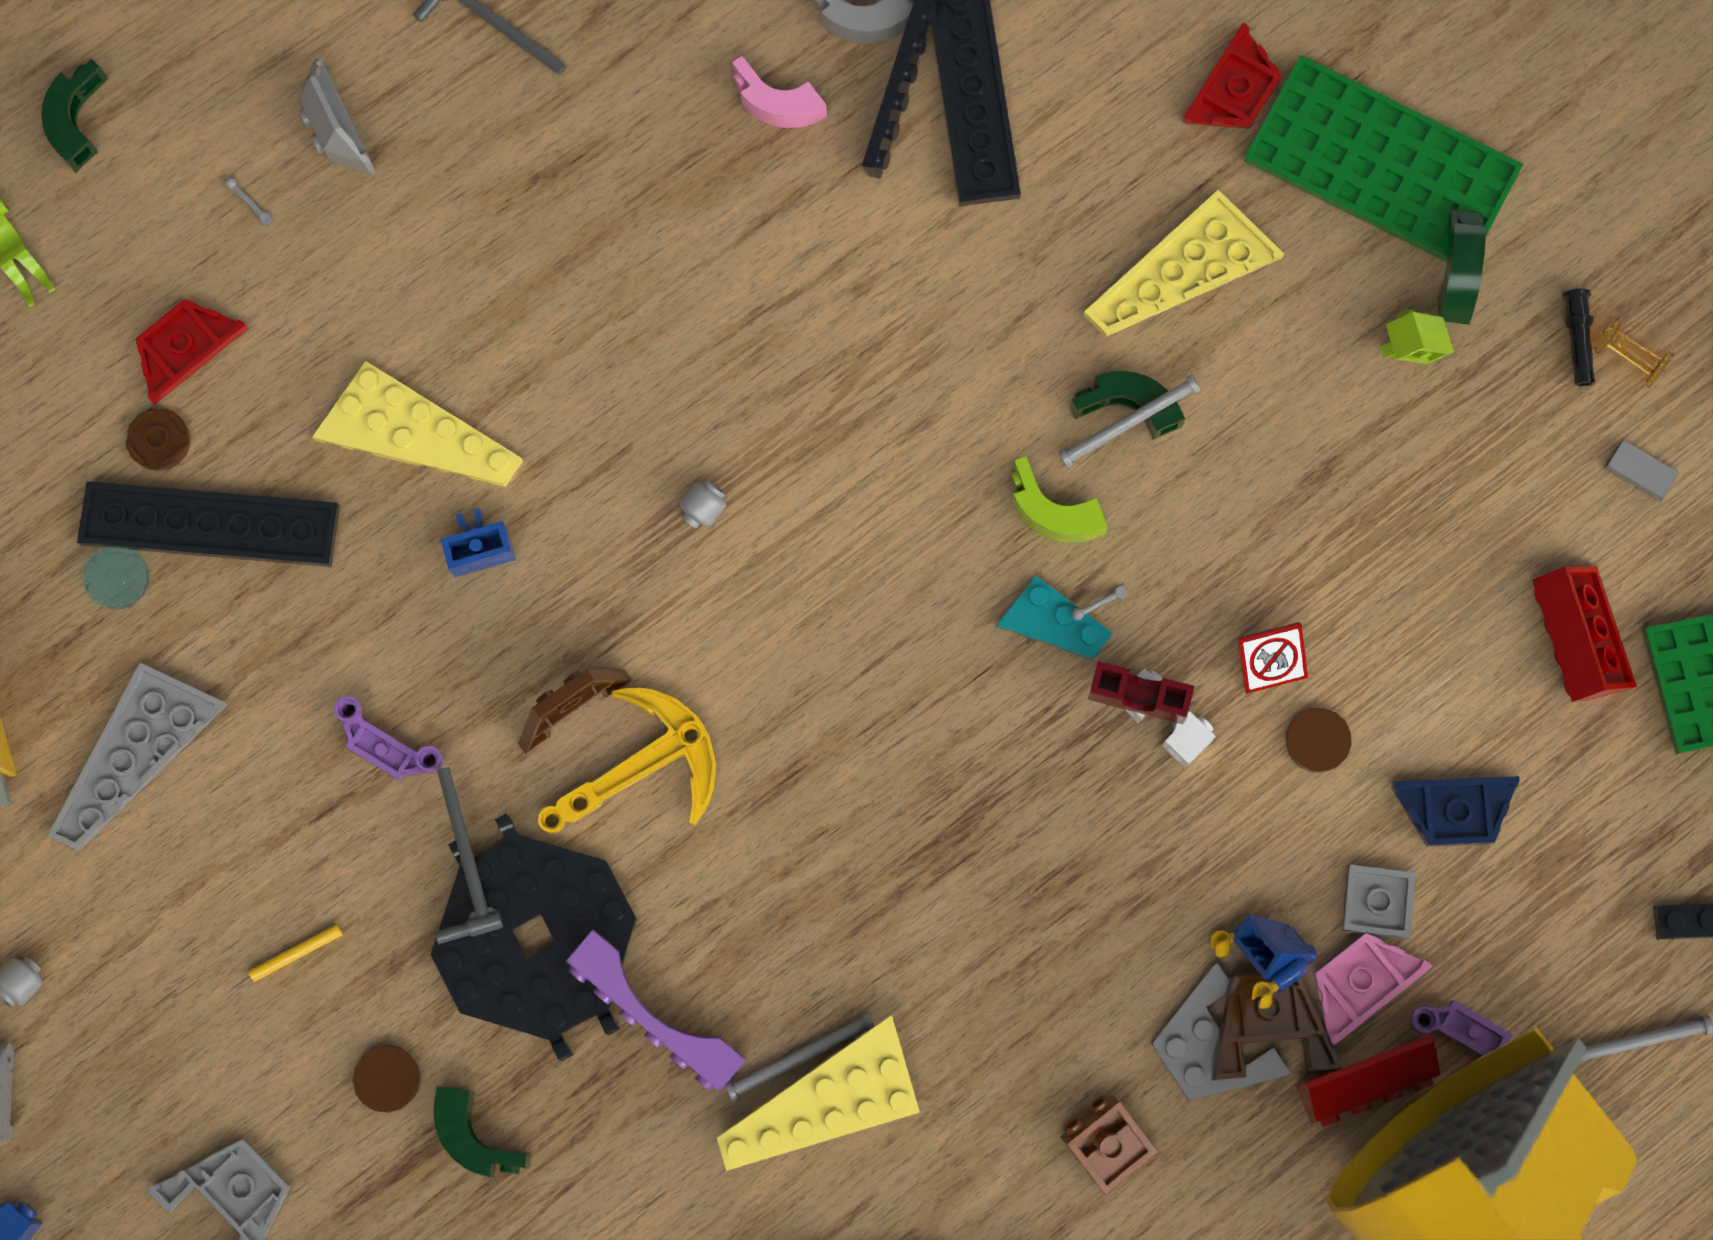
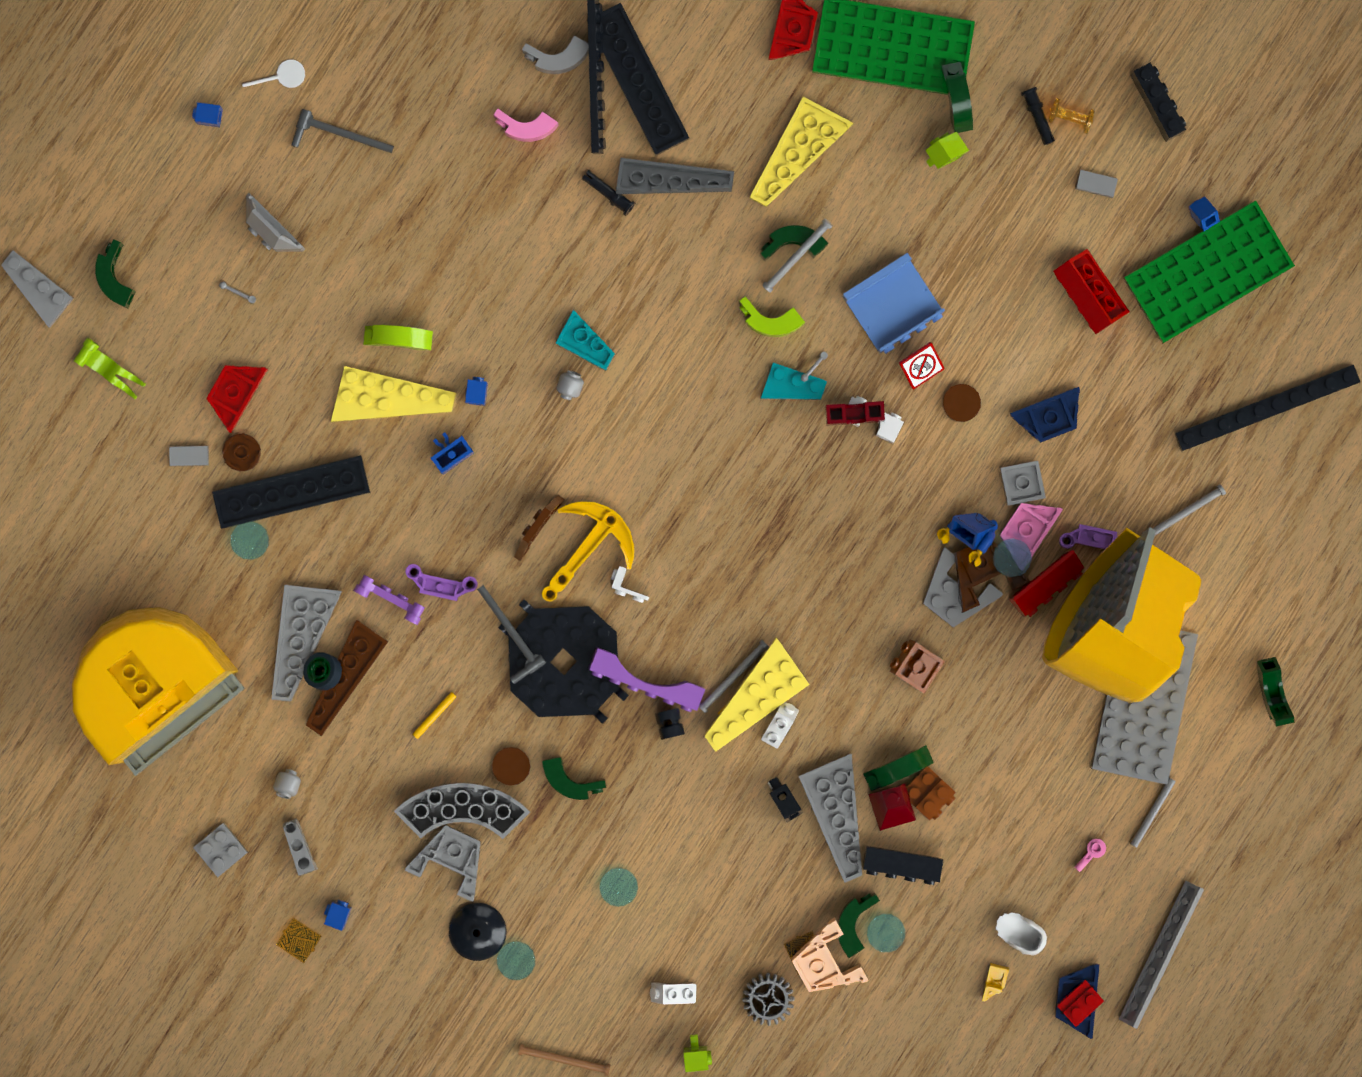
camera: 20 degrees left, 10 degrees up
(75, 418) = (189, 456): none -> light grey tile
(143, 818) = (313, 669): none -> wheel
(198, 825) = (356, 659): none -> reddish brown wing
(281, 1112) = (462, 804): none -> light grey brick
(323, 770) = (413, 611): none -> medium lavender plate
(465, 341) = (398, 337): none -> lime arch
(553, 465) = (476, 391): none -> blue brick
(664, 1109) = (668, 731): none -> black wheel
(670, 831) = (618, 576): none -> white bracket
(749, 448) = (584, 342): none -> teal wing
(849, 1163) = (780, 724): none -> white bracket
(875, 246) = (615, 199): none -> black pin
(951, 237) = (658, 177): none -> dark grey wing
(1257, 548) = (893, 304): none -> medium blue panel
(1324, 1017) = (1012, 557): none -> clear light blue tile

